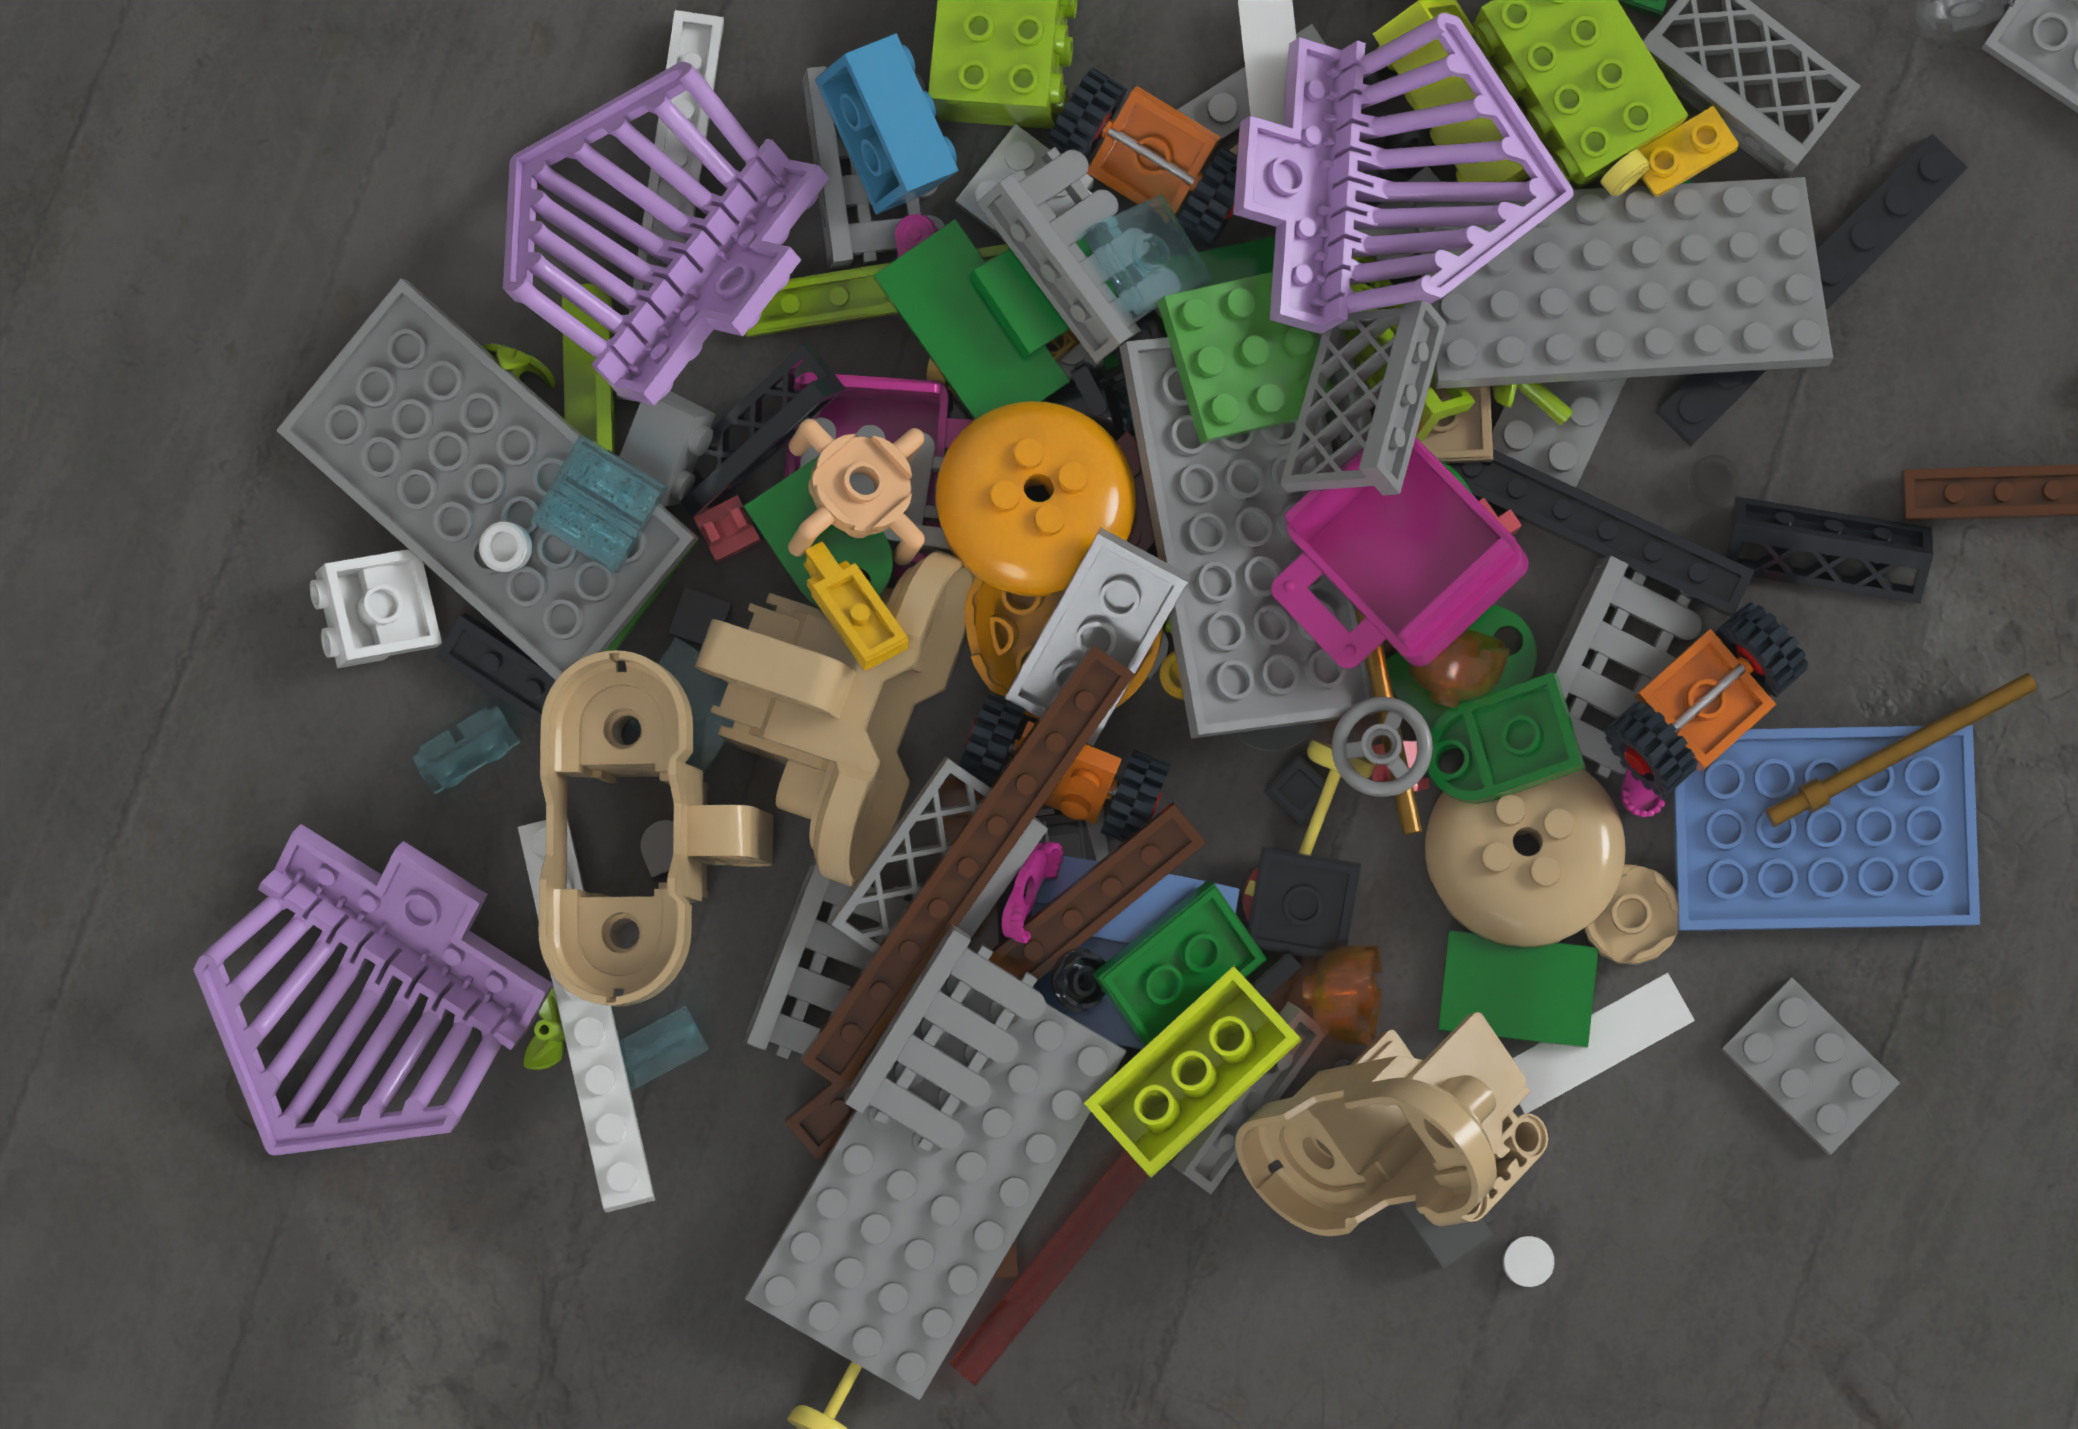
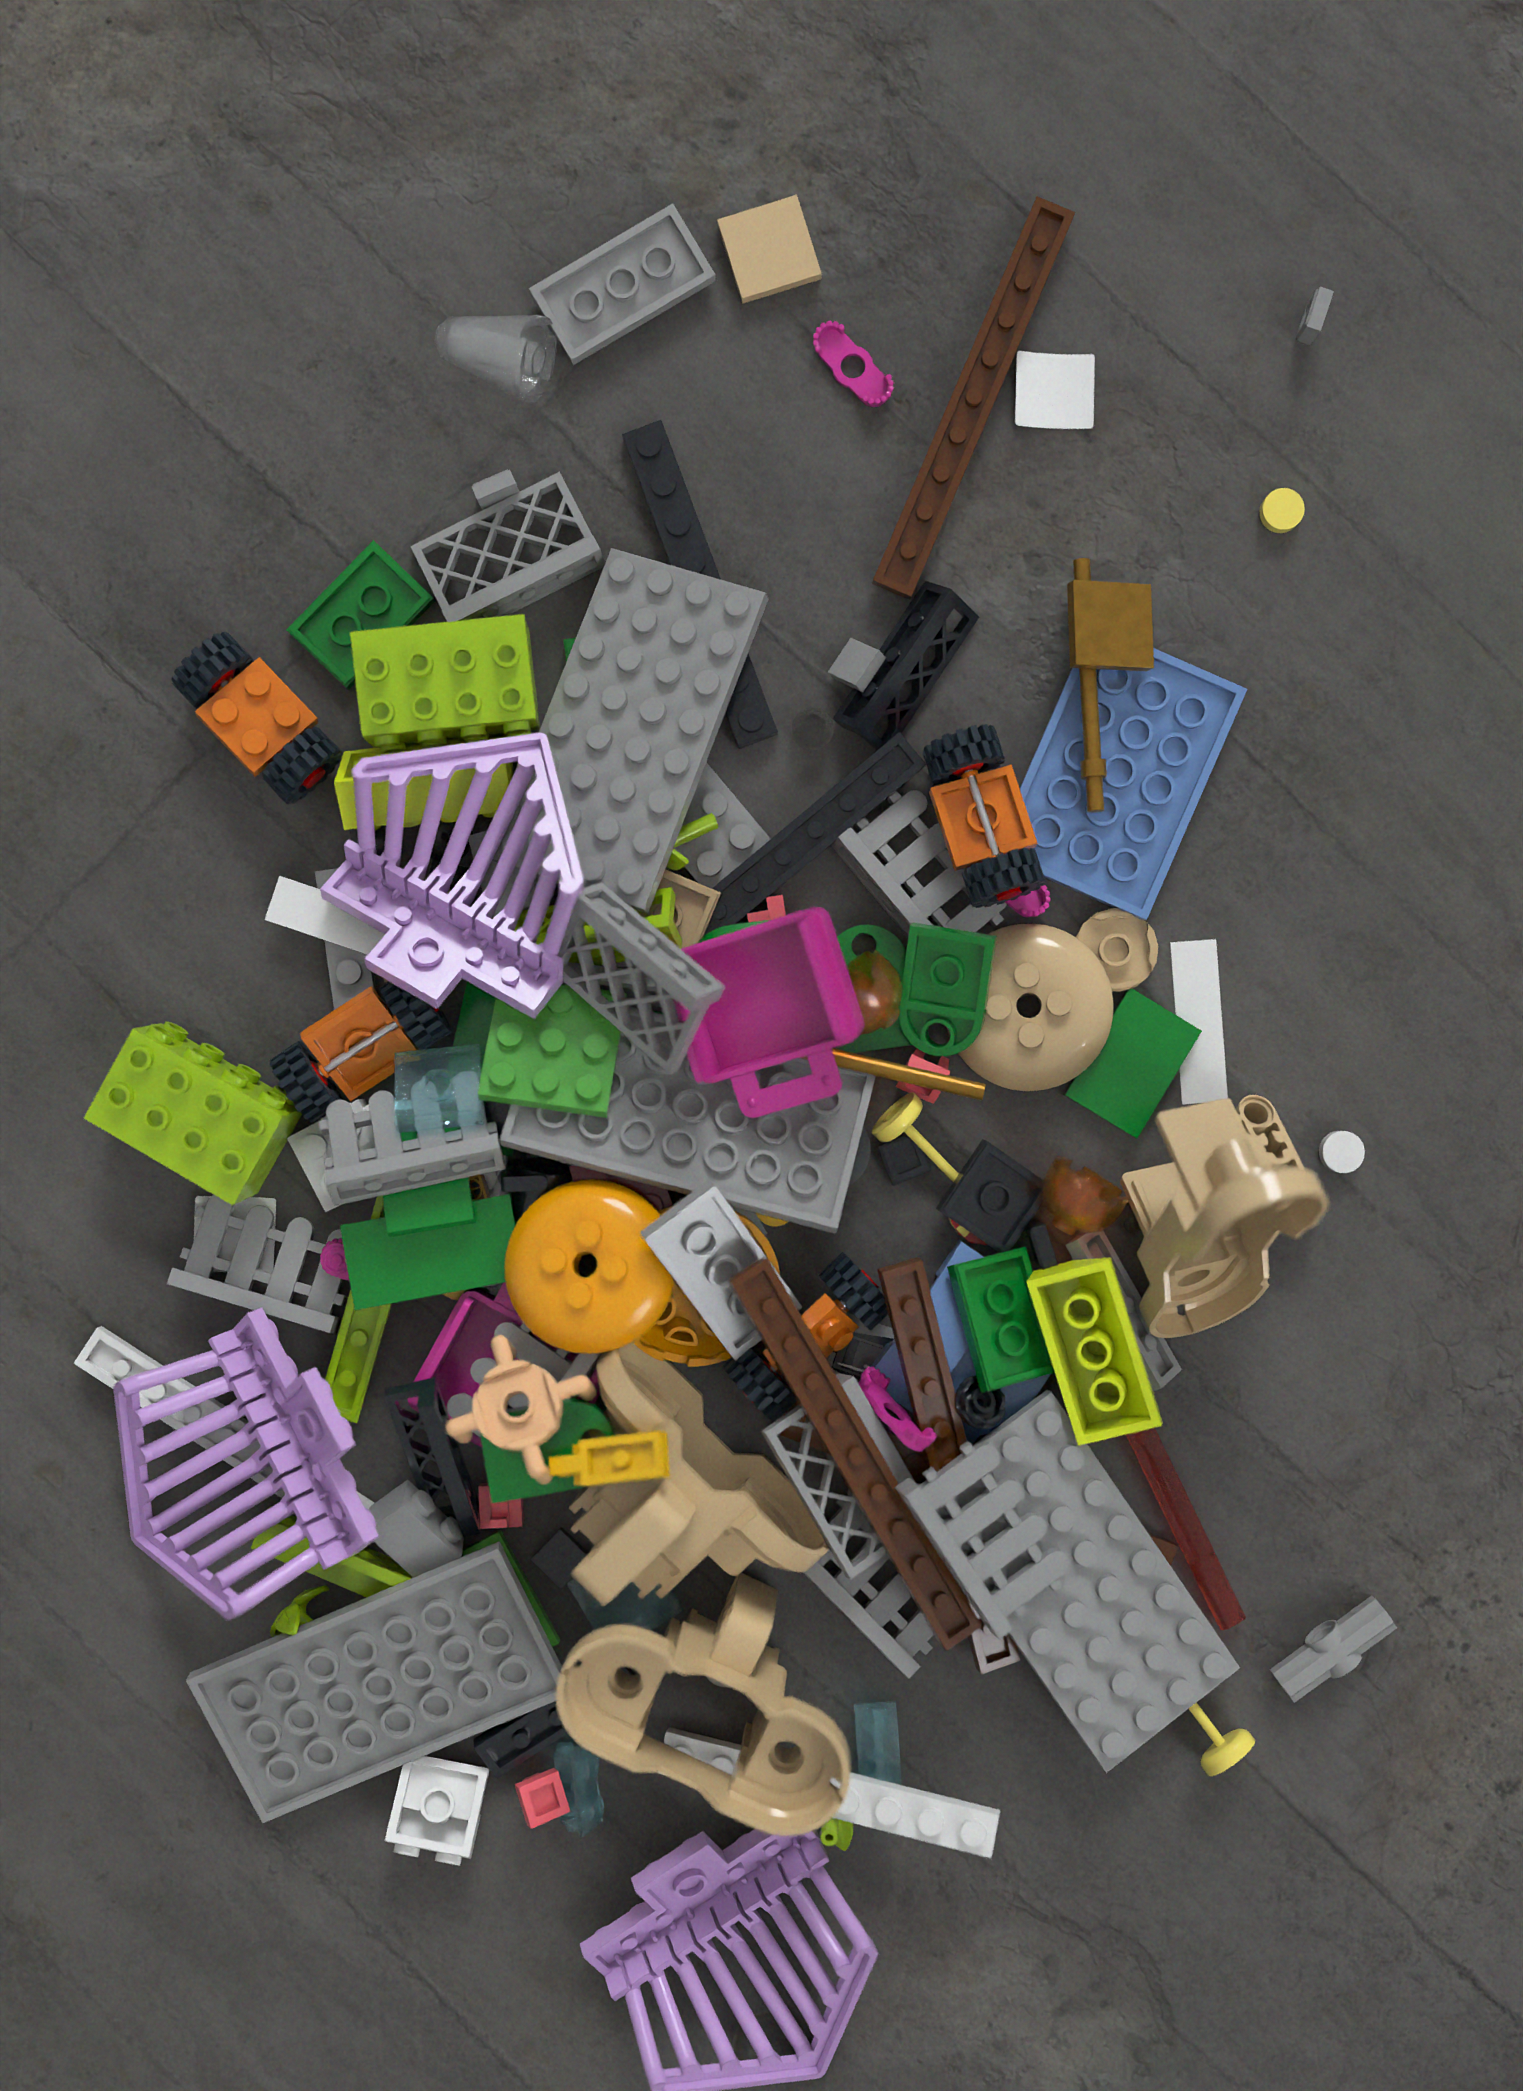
camera: 60 degrees left, 5 degrees up
(439, 713) = (542, 1797): none -> coral tile
(505, 546) = (436, 1694): white tile -> none
(599, 503) = (436, 1610): clear light blue tile -> none
(887, 123) = (238, 1244): dark azure brick -> none
(1405, 777) = (938, 1079): light grey piece -> none
(1625, 173) = (546, 685): light yellow tile -> none
(1686, 151) = (549, 633): yellow bracket -> none
(1805, 494) = (856, 664): none -> light grey tile
(1808, 26) = (495, 489): none -> light grey tile
(1810, 1066) = (1291, 868): light grey plate -> none
(1975, 742) = (1110, 625): none -> pearl gold tile

